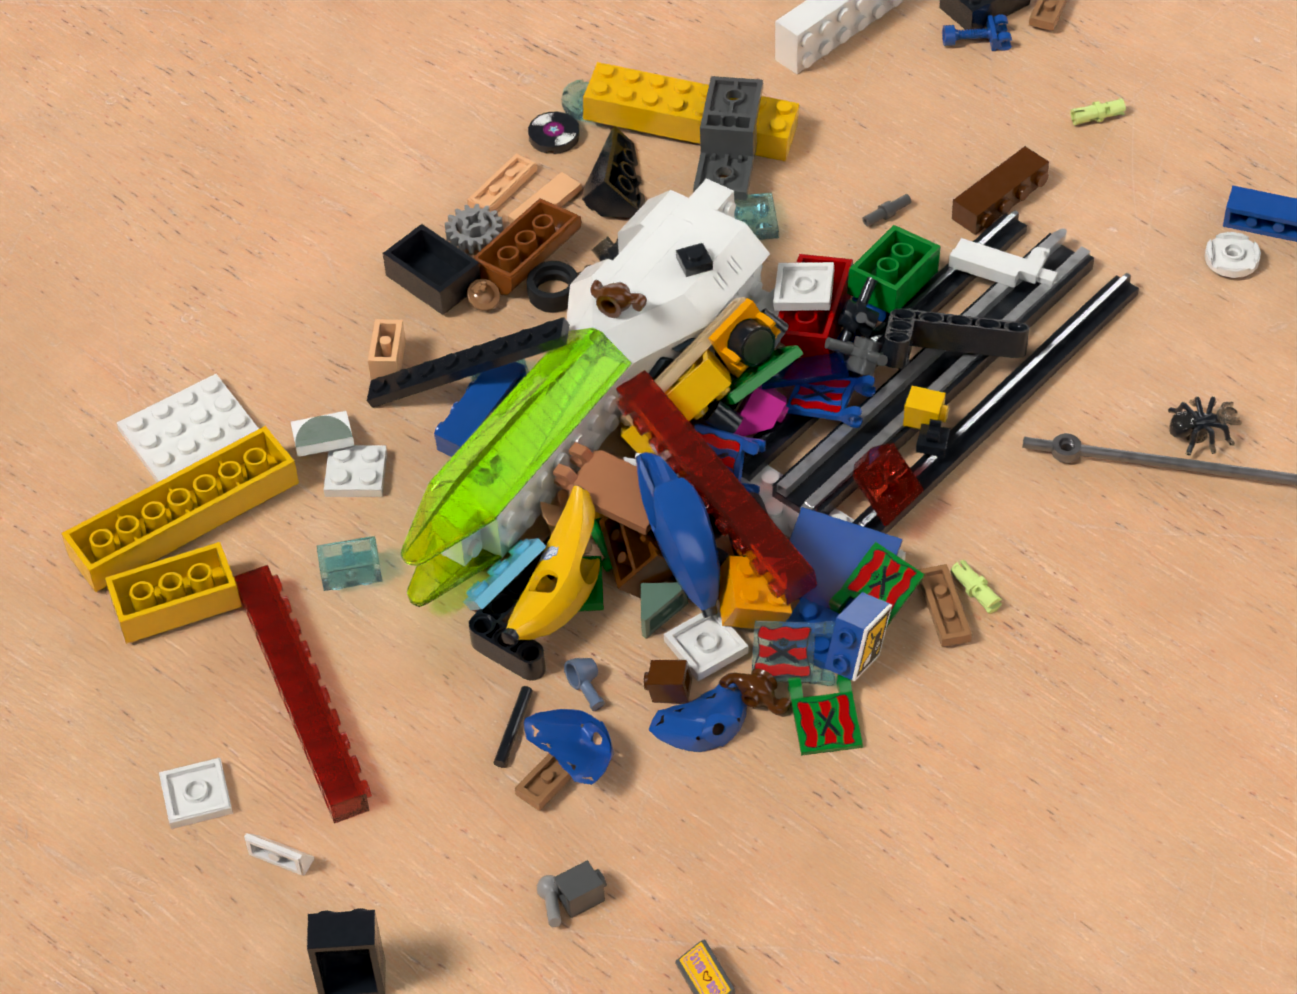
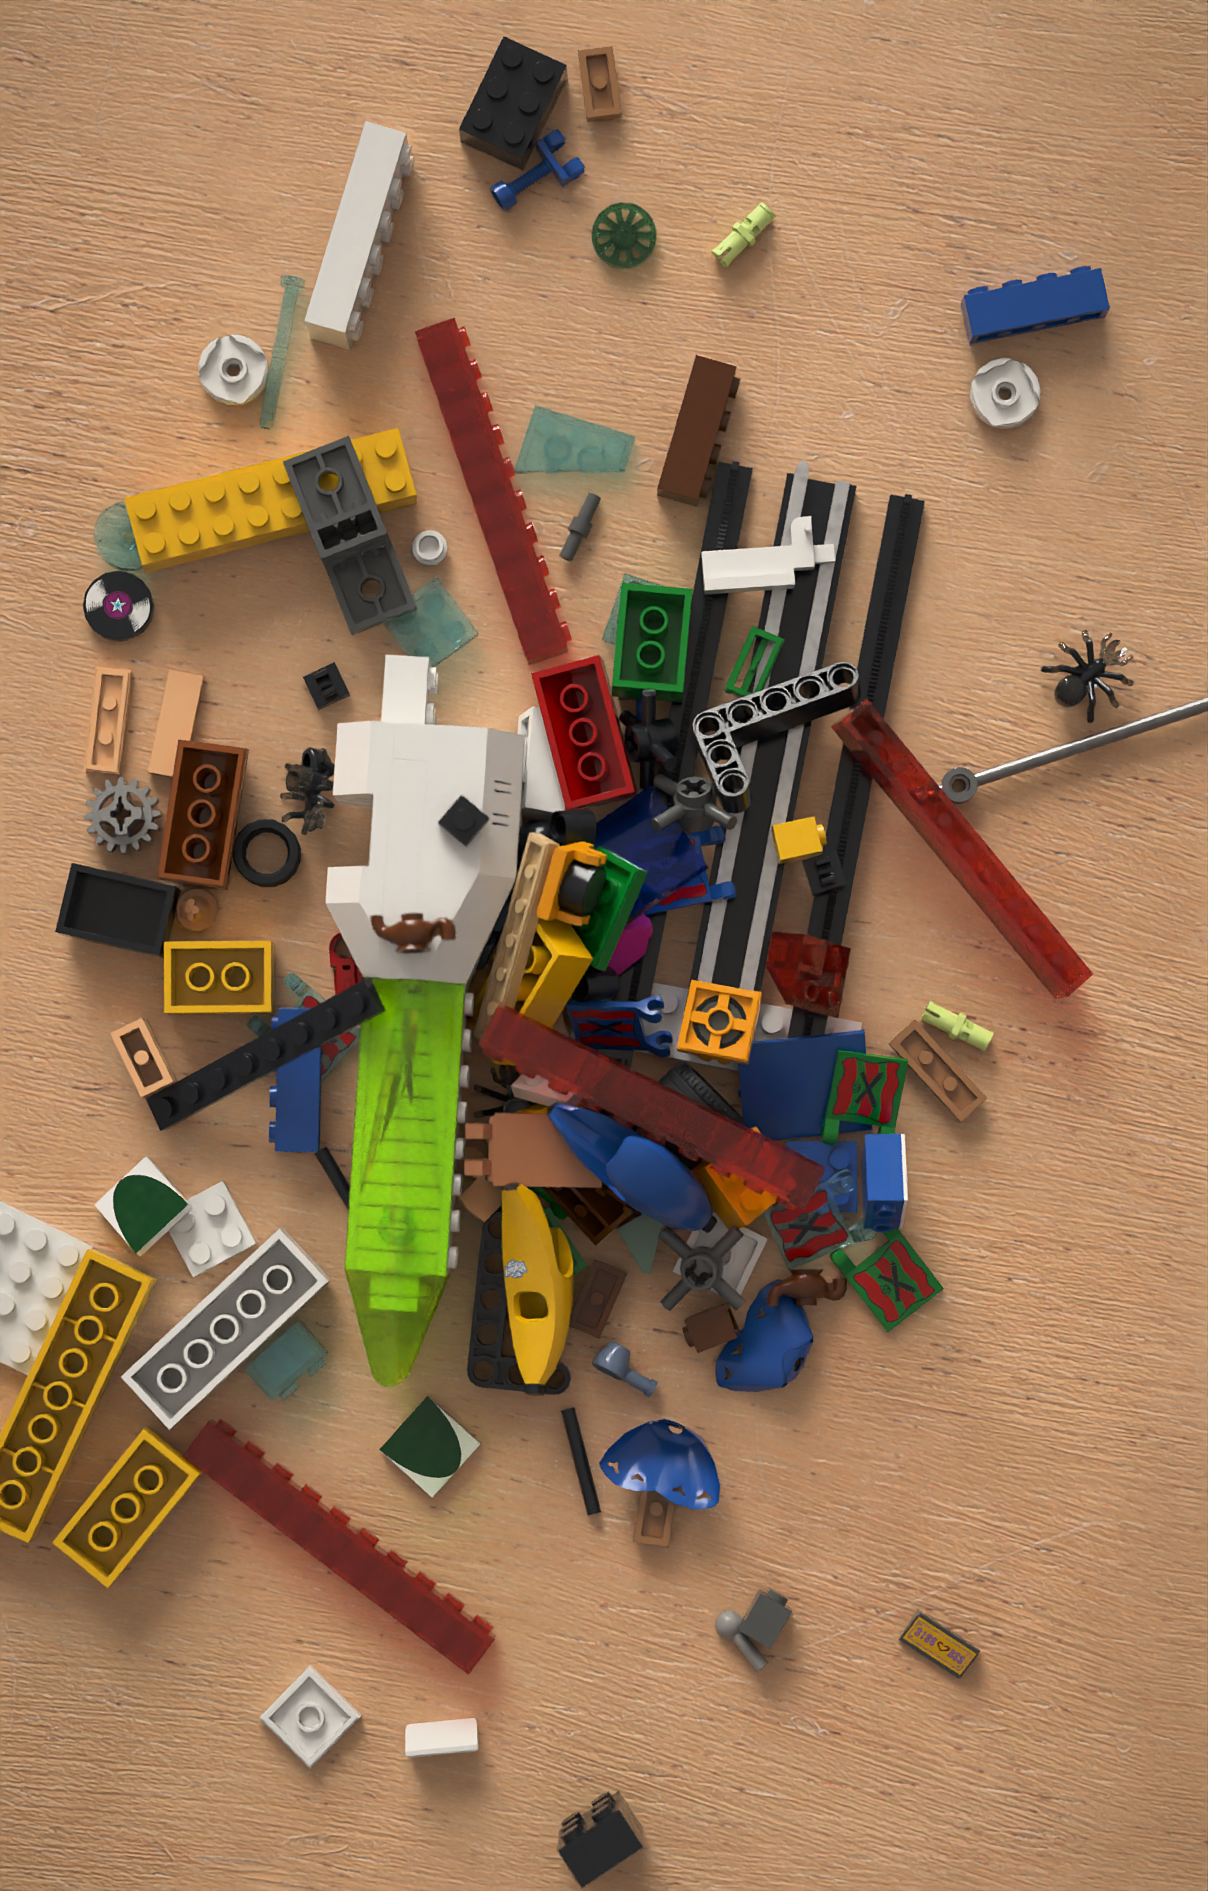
camera: 30 degrees left, 35 degrees up
(294, 523) = (226, 1328): none -> white brick
(410, 665) = (430, 1446): none -> dark green tile
(463, 322) = (219, 977): none -> yellow brick
(502, 573) = (471, 1302): medium azure plate -> none
(596, 629) = (597, 1298): none -> reddish brown plate
(613, 180) = (241, 657): black wedge -> none
(685, 630) = (712, 1258): none -> dark grey bar
(714, 50) = (230, 352): none -> white plate
(748, 56) = (292, 286): none -> clear light blue bar
(778, 180) = (429, 547): none -> white plate
(797, 478) = (719, 1022): none -> light orange piece
(803, 286) = (570, 732): white plate -> none
(840, 163) = (491, 491): none -> clear red brick
(910, 167) = (570, 444): none -> clear light blue wing
(974, 309) = (766, 638): none -> green tile
(1016, 83) = (624, 235): none -> clear green wheel
(1044, 472) = (962, 850): none -> clear red brick

